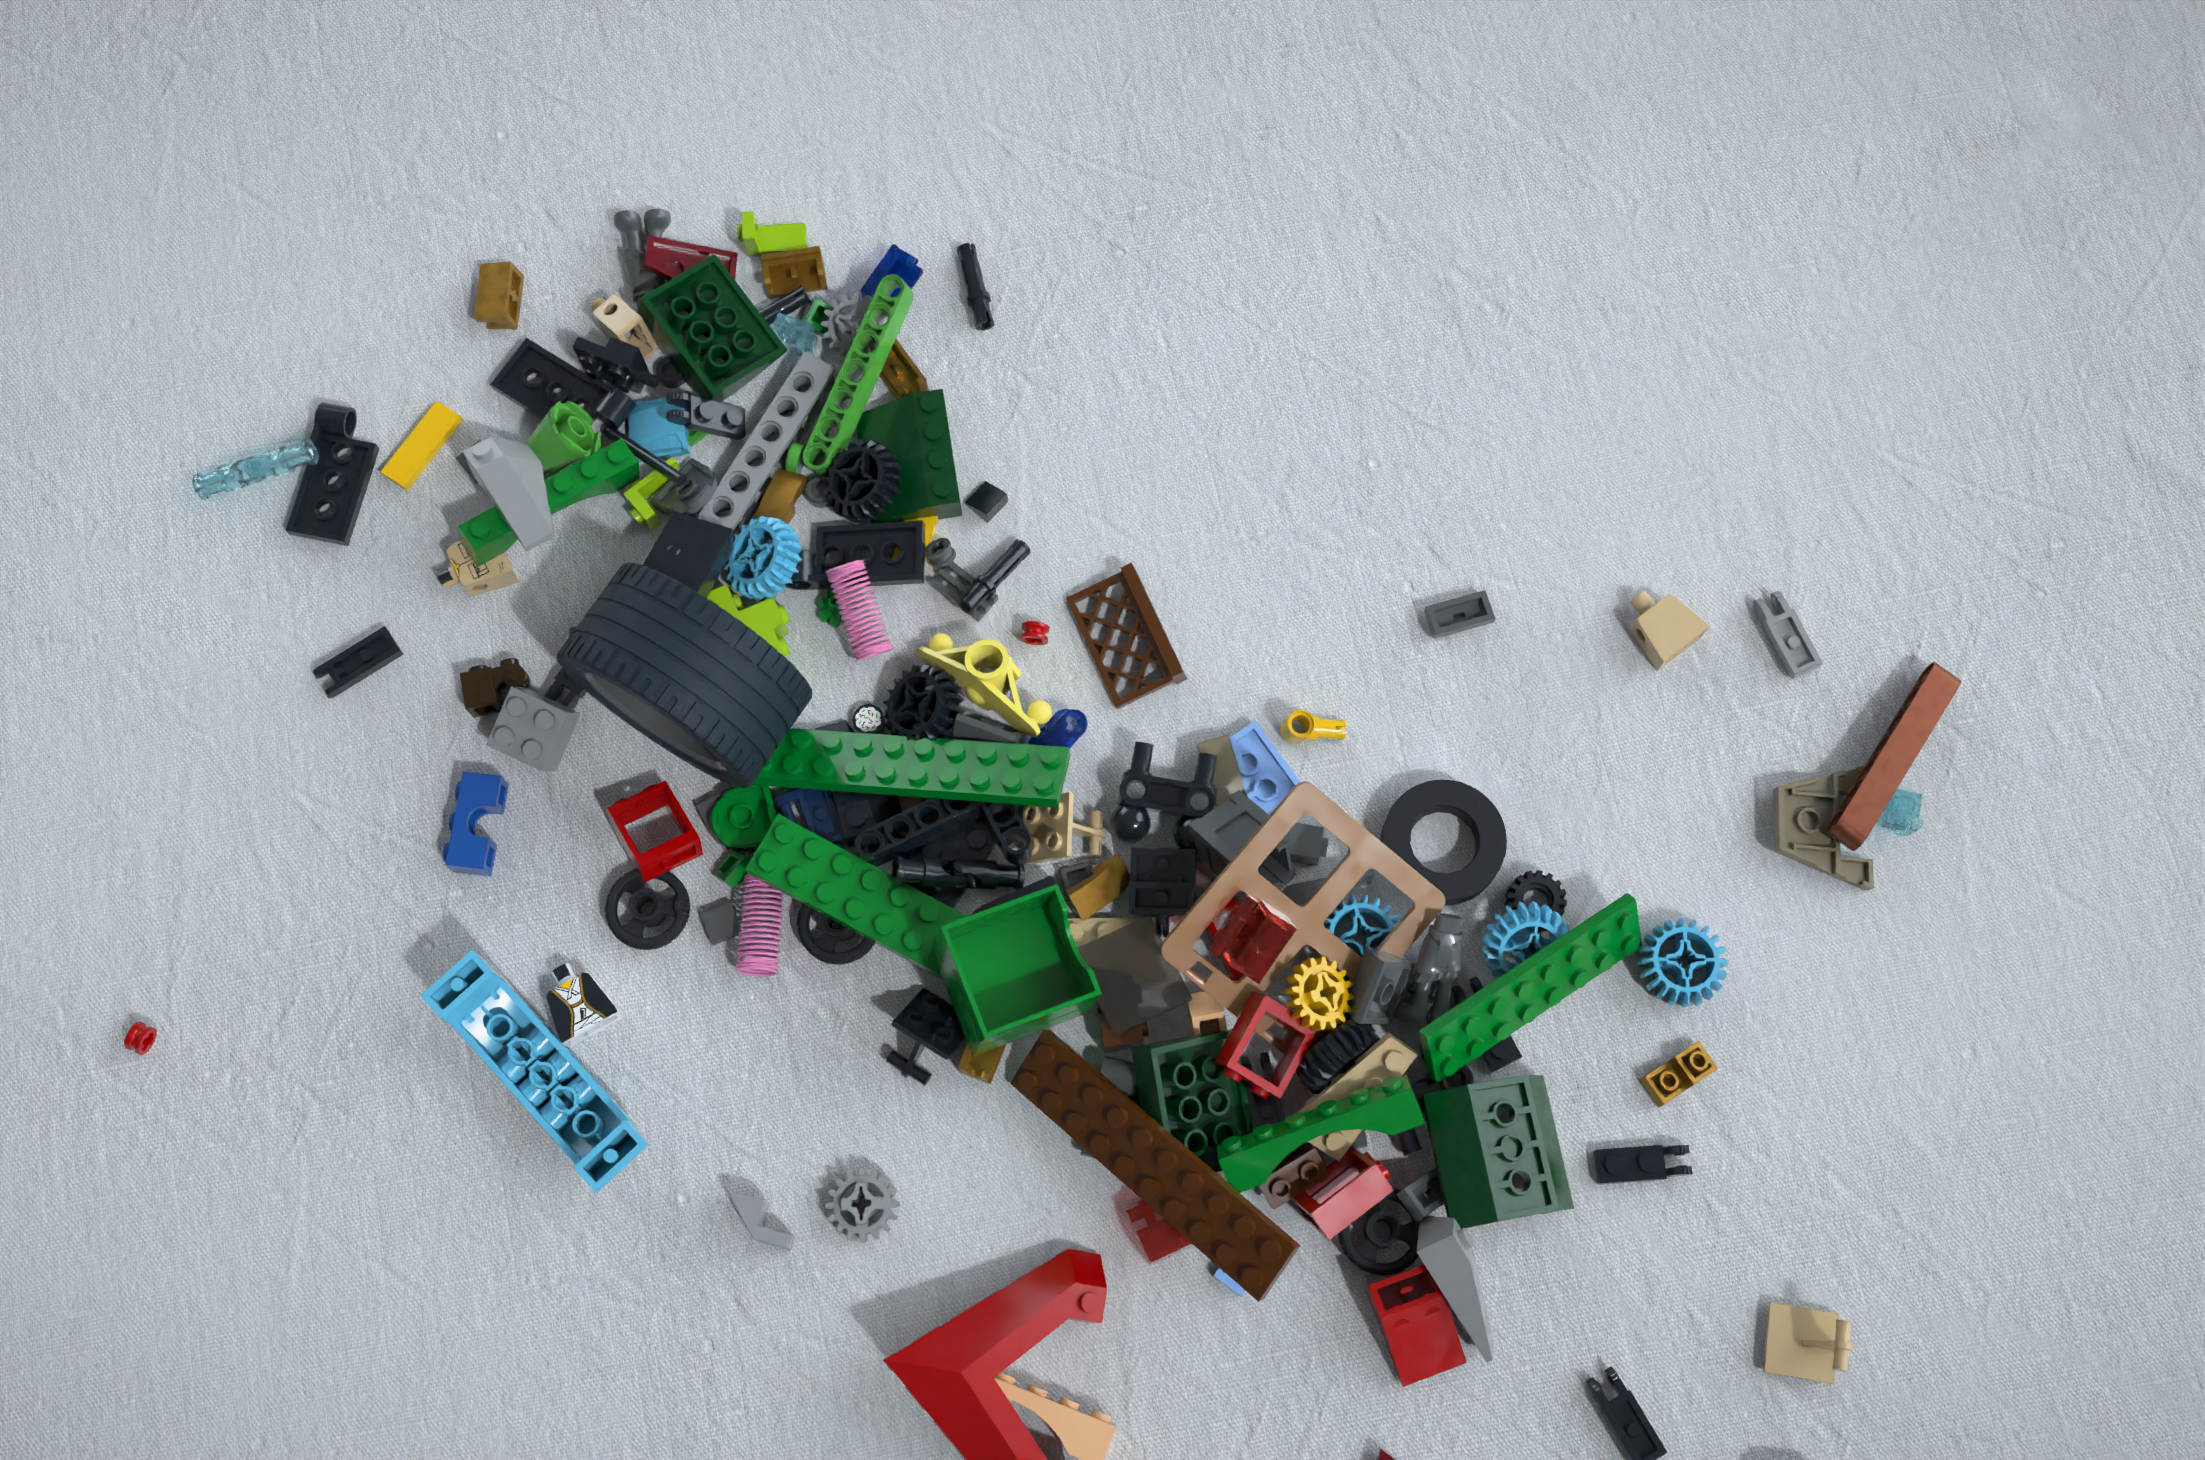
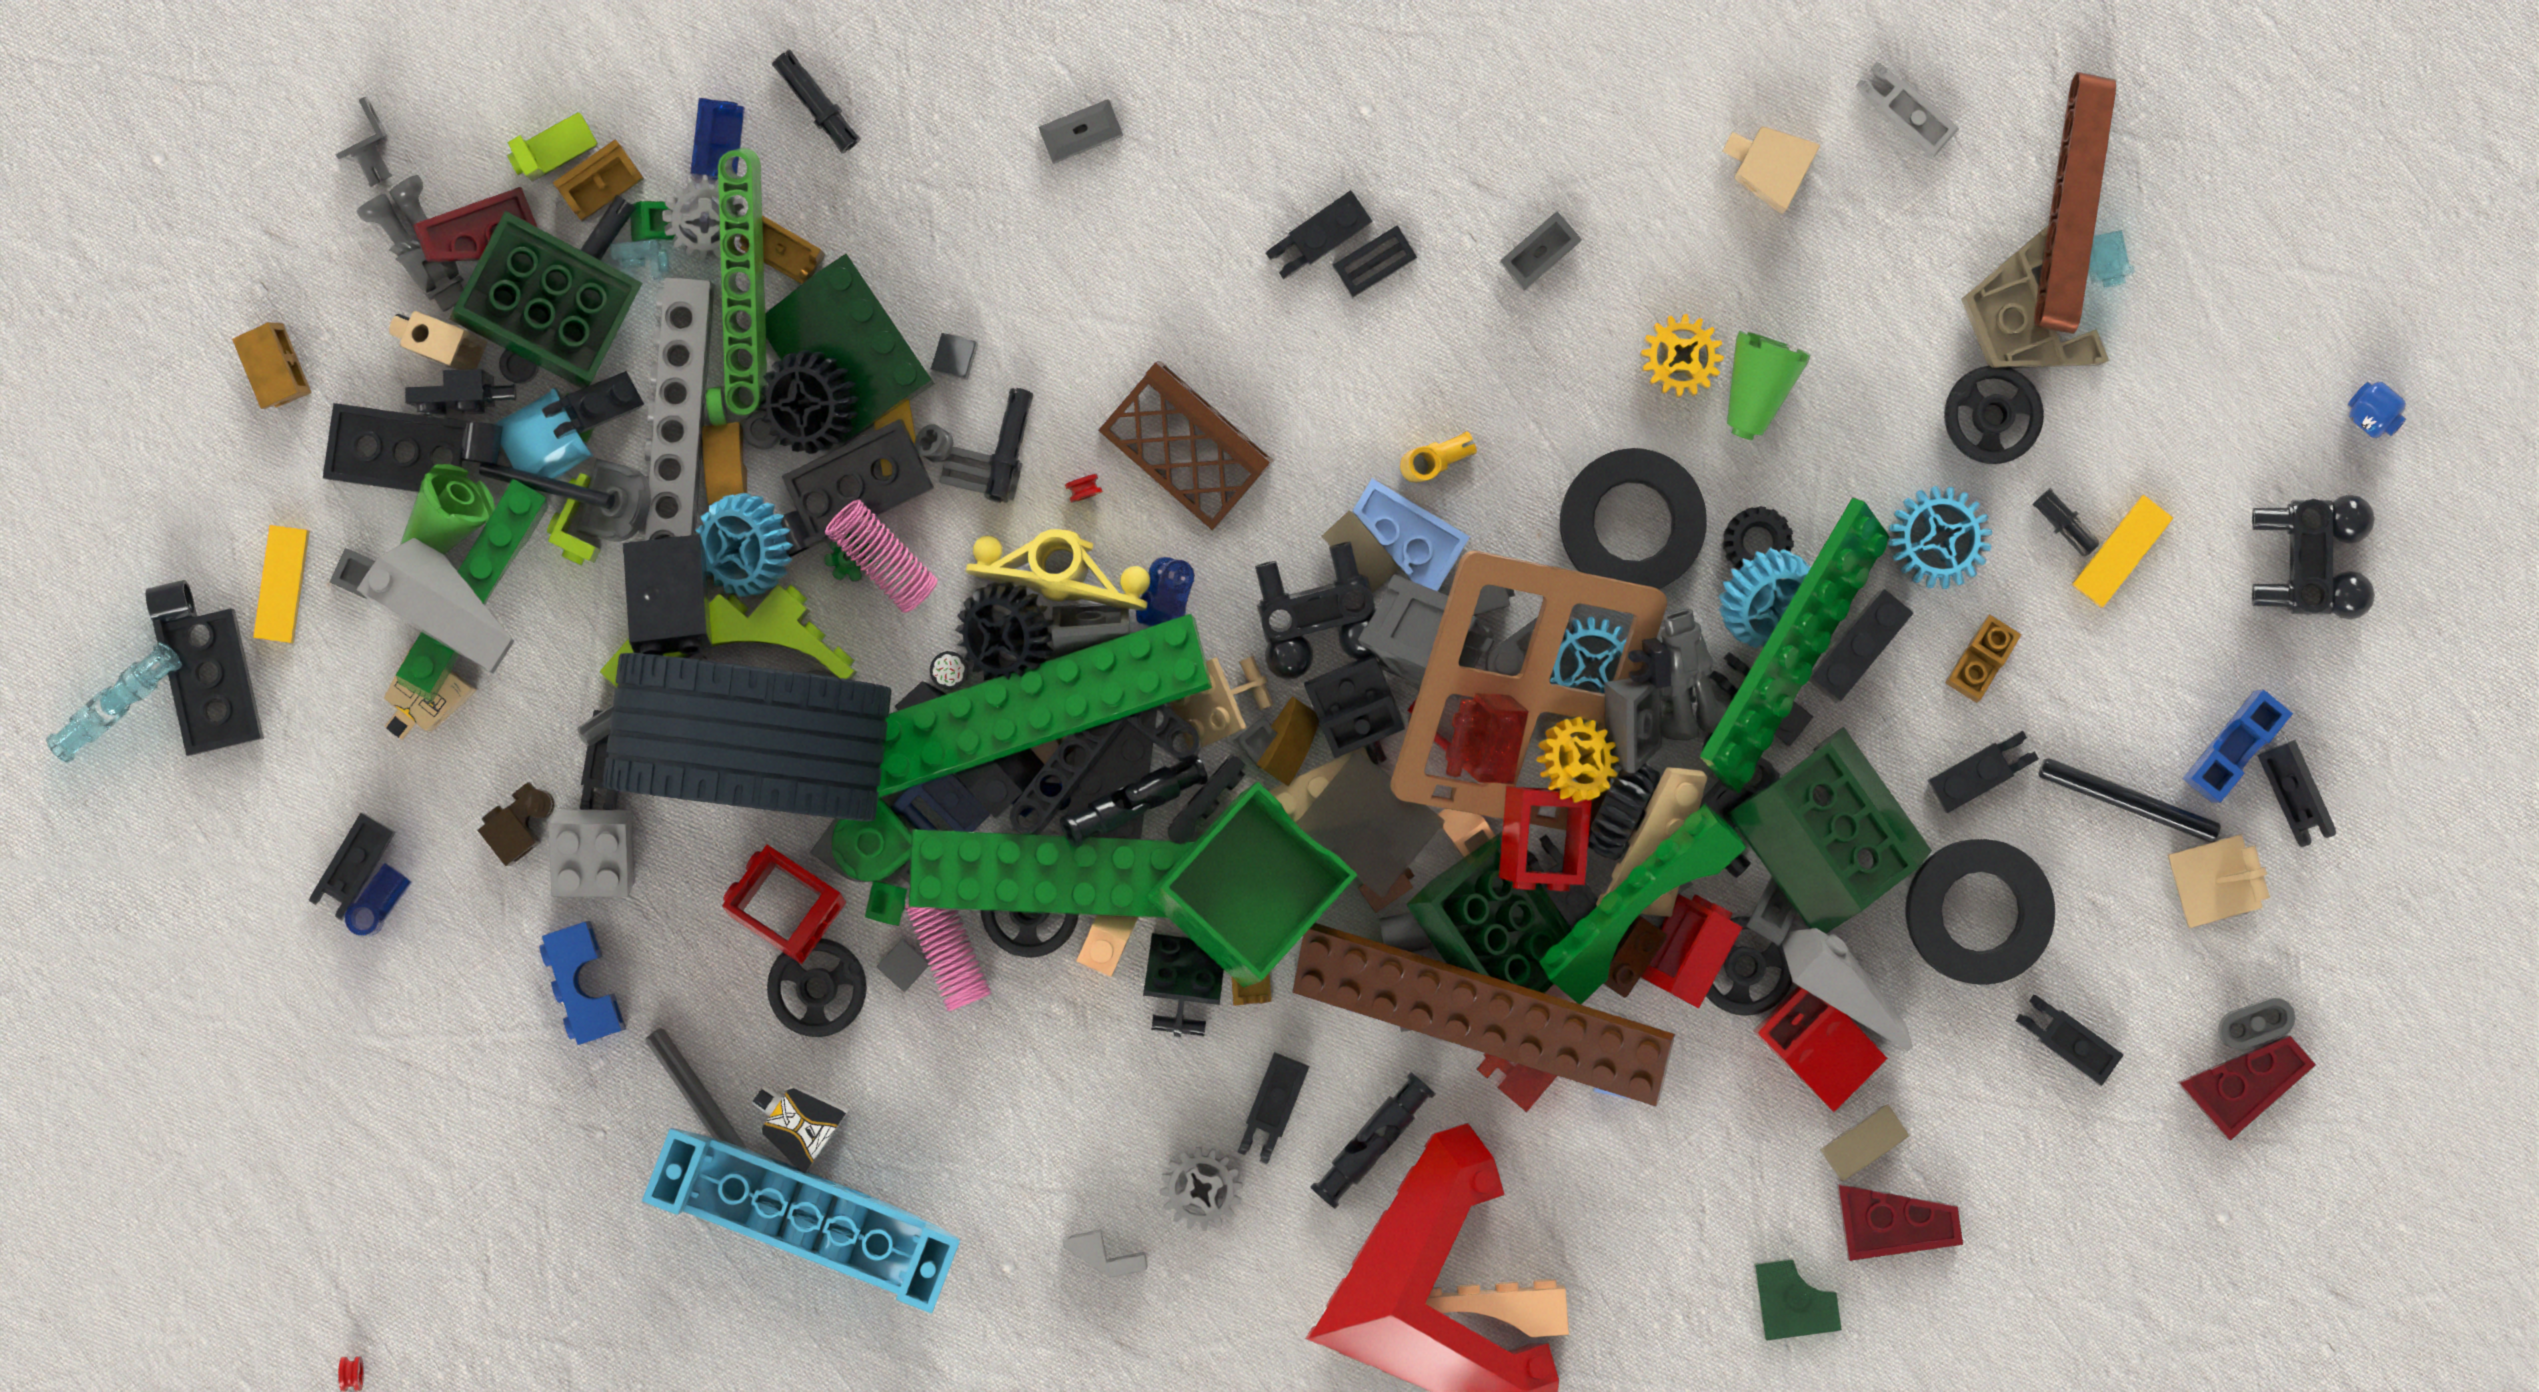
camera: 30 degrees left, 15 degrees up
(362, 693) = (379, 897): none -> clear blue piece
(514, 941) = (692, 1088): none -> dark grey axle
(646, 181) = (366, 150): none -> dark grey bracket
(885, 975) = (1106, 942): none -> light nougat slope
(953, 1164) = (1274, 1102): none -> black hinge
(1005, 1236) = (1368, 1146): none -> black piece
(1170, 392) = (1063, 143): none -> dark grey piece
(1299, 533) = (1322, 233): none -> black hinge
(1330, 570) = (1348, 278): none -> black tile
(1414, 948) = (1655, 663): none -> black tile
(1417, 1424) = (1864, 1142): none -> dark tan slope
(1532, 723) = (1669, 342): none -> yellow gear
(1583, 1016) = (1860, 645): none -> black brick
(1589, 780) = (1761, 382): none -> bright green cone
(1641, 1265) = (2033, 923): none -> black tyre
(1751, 911) = (2025, 401): none -> black wheel
(1755, 1243) = (2129, 800): none -> black axle
(1789, 997) = (2066, 522): none -> black axle
(1826, 1040) = (2122, 551): none -> yellow tile
(1864, 1236) = (2234, 746): none -> blue arch
(1899, 1299) = (2296, 792): none -> black hinge
(1984, 1114) = (2311, 557): none -> black piece
(2081, 1021) = (2377, 409): none -> blue head

